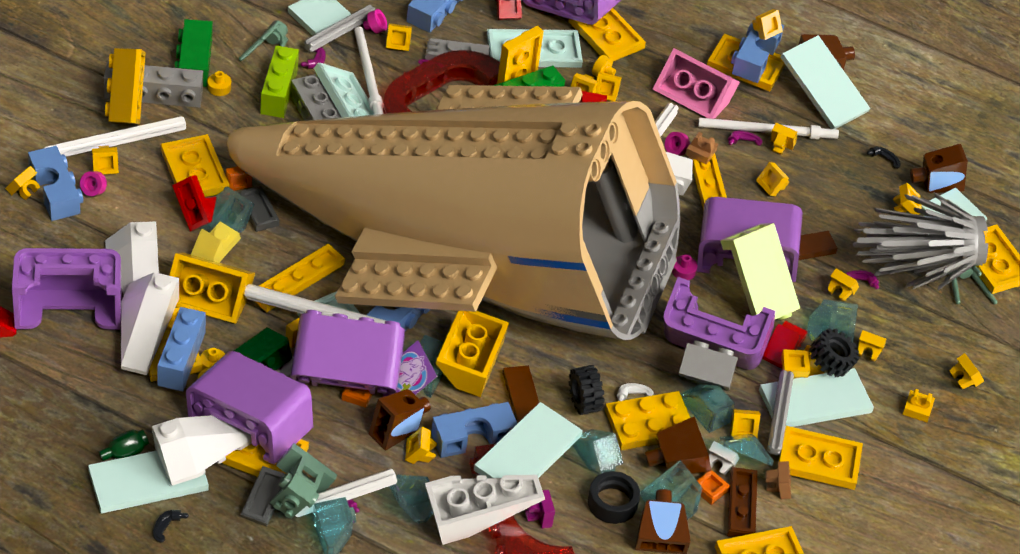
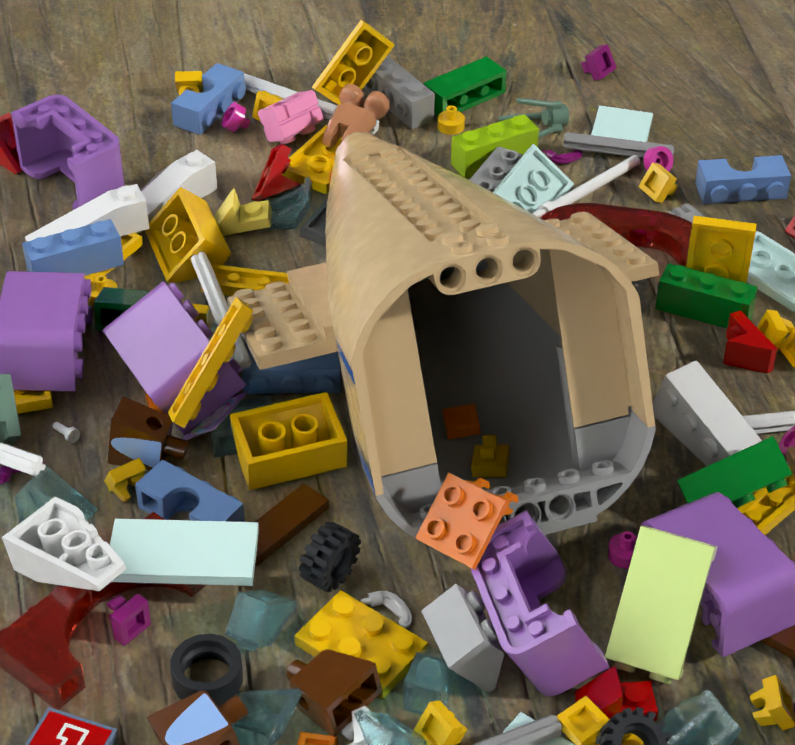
camera: 60 degrees right, 5 degrees down
(134, 154) = (291, 116): none -> bright pink brick
(181, 125) = (354, 114): none -> nougat piece
(342, 453) = (71, 434): none -> white piece
(411, 335) = (204, 374): none -> yellow plate
(653, 307) = (464, 519): none -> orange plate
(697, 182) = (740, 474): none -> green brick

